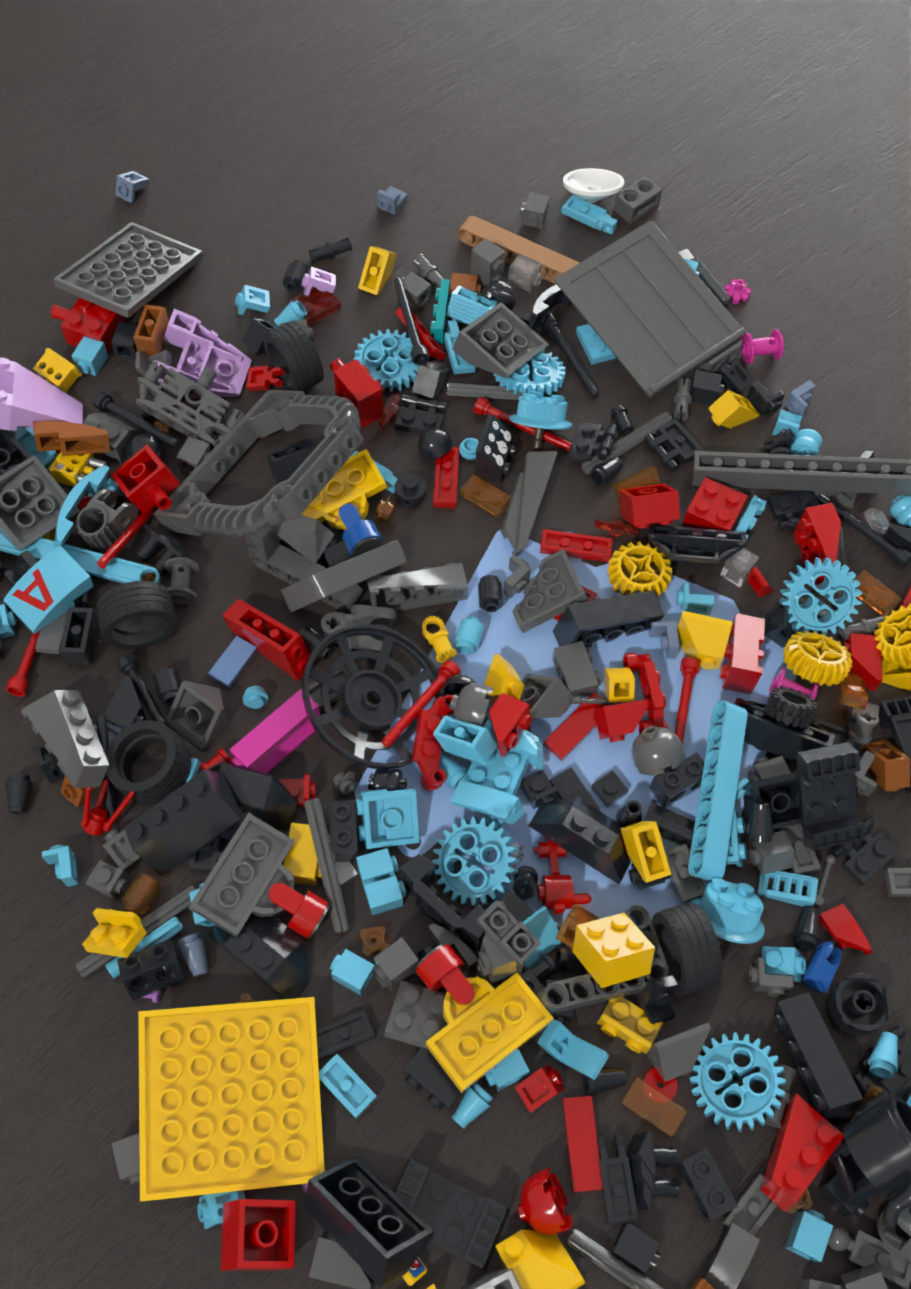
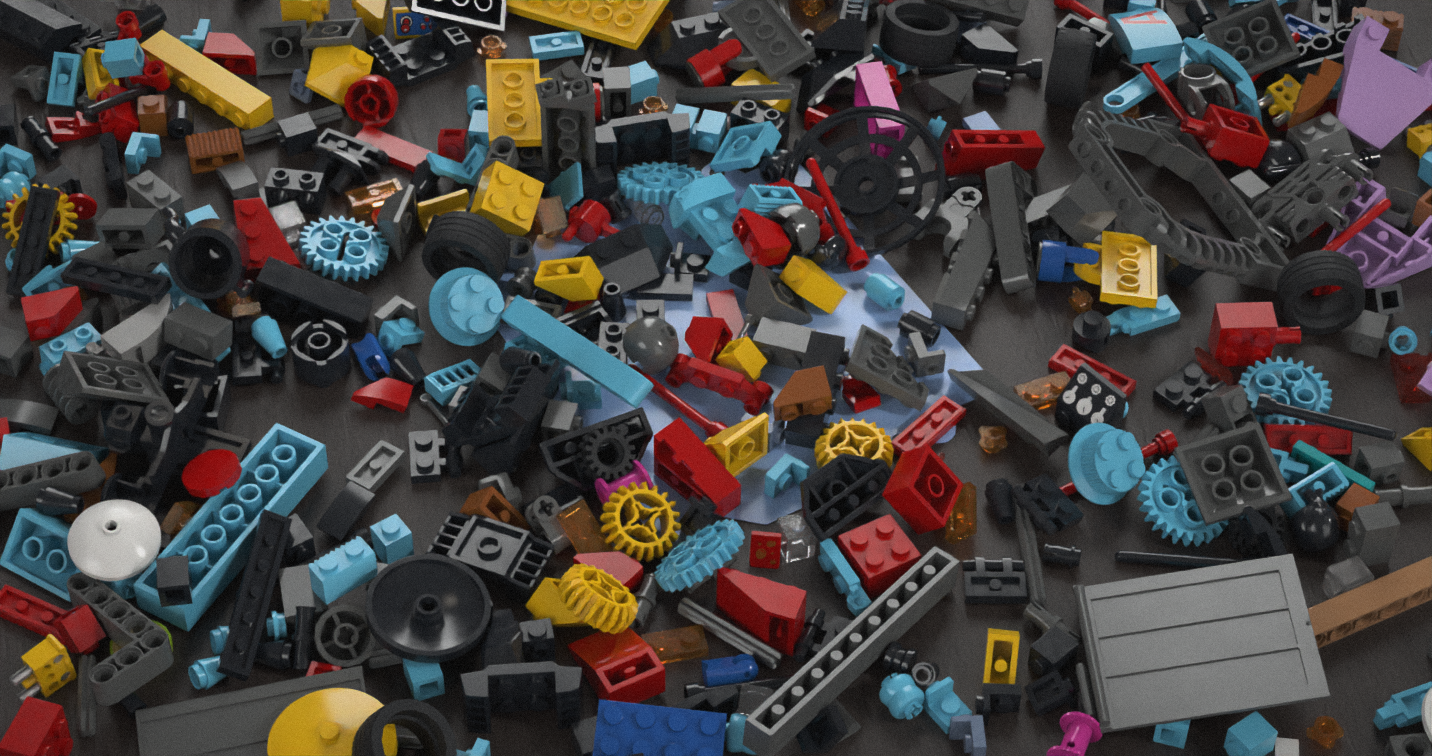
camera: 125 degrees right, 15 degrees down
(254, 394) = (1358, 225): none -> red piece
(393, 1156) = (491, 47): none -> clear orange plate
(434, 443) = (1138, 371): black hair -> none
(439, 639) = (900, 269): yellow connector -> none
(551, 508) = (992, 438): none -> clear orange plate
(640, 605) = (803, 394): none -> dark orange slope
(659, 899) = (522, 283): none -> dark grey wheel
(745, 1160) = (289, 221): none -> clear brick
(872, 549) = (729, 670): none -> blue piece

